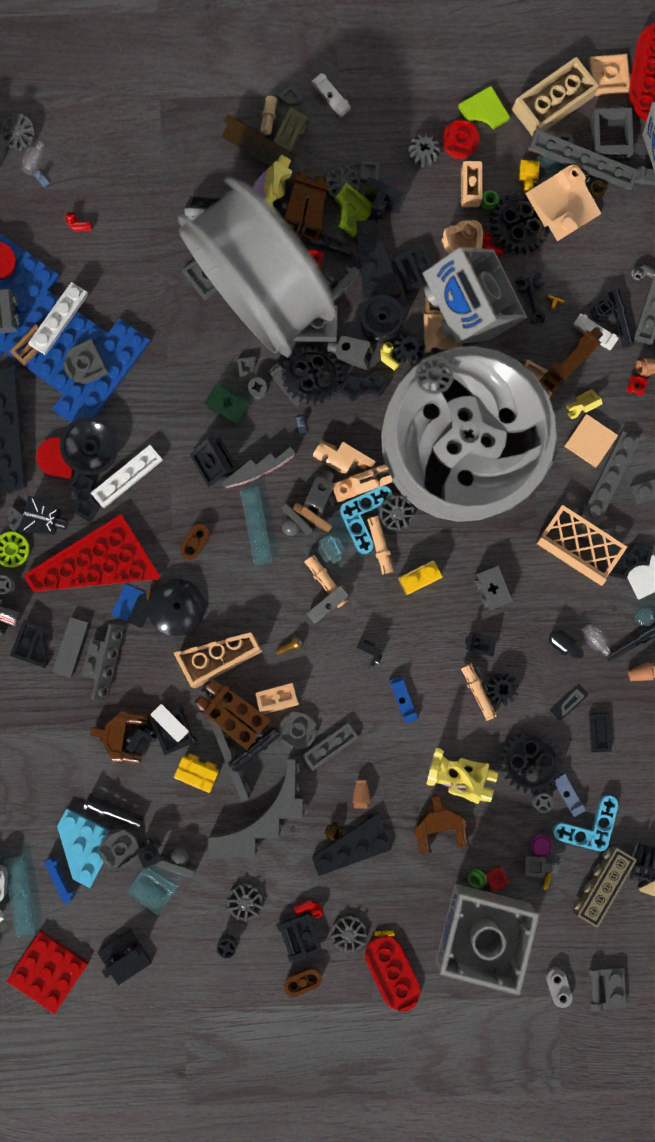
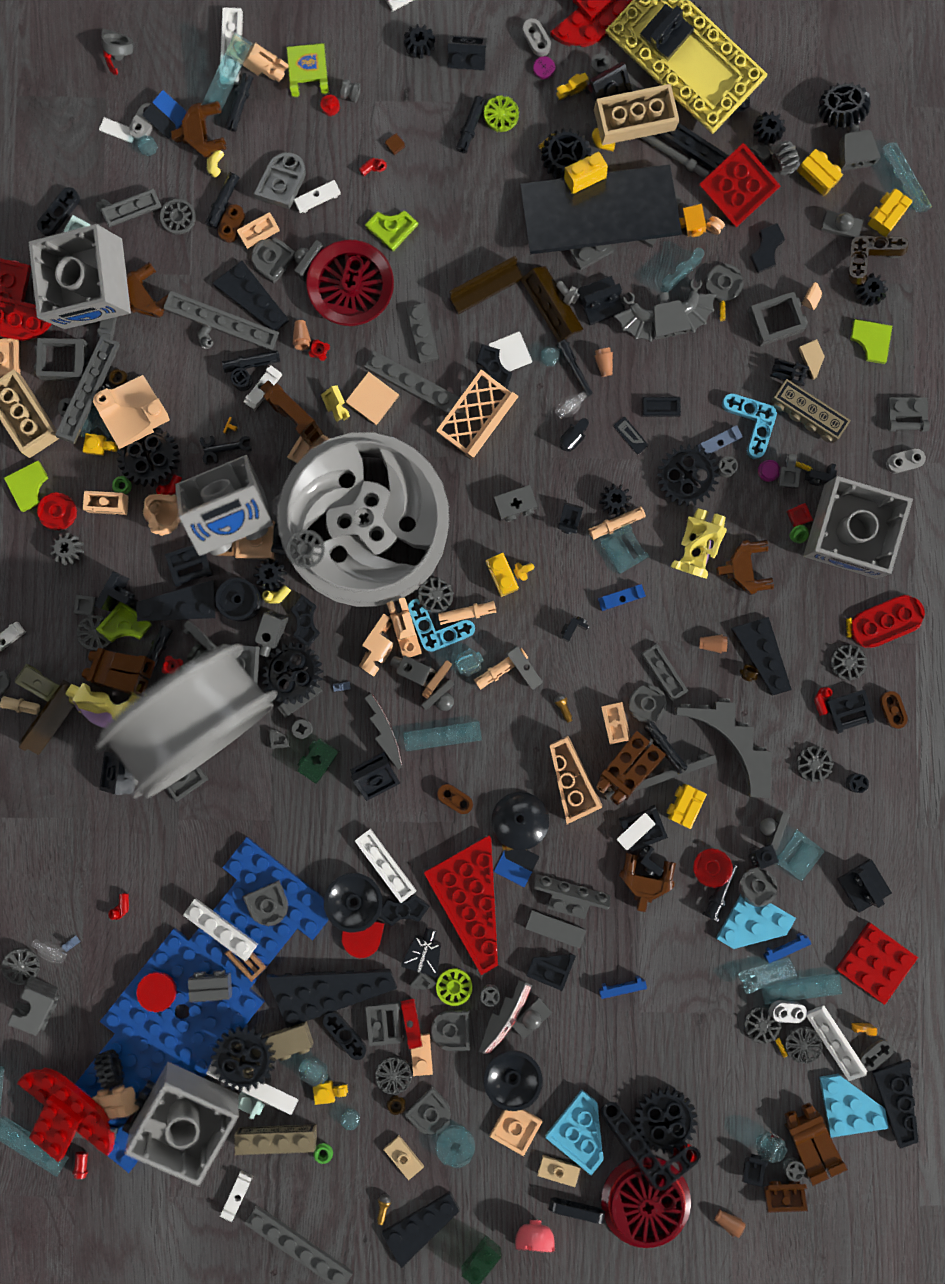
camera: 90 degrees left, 0 degrees up
(14, 715) = (623, 988): none -> blue piece
(32, 861) = (768, 975): none -> clear light blue plate
(136, 802) = (712, 868): none -> red tile
(425, 597) = (521, 571): none -> yellow plate
(450, 694) = (618, 551): none -> clear light blue plate
(536, 897) = (818, 477): none -> black bracket

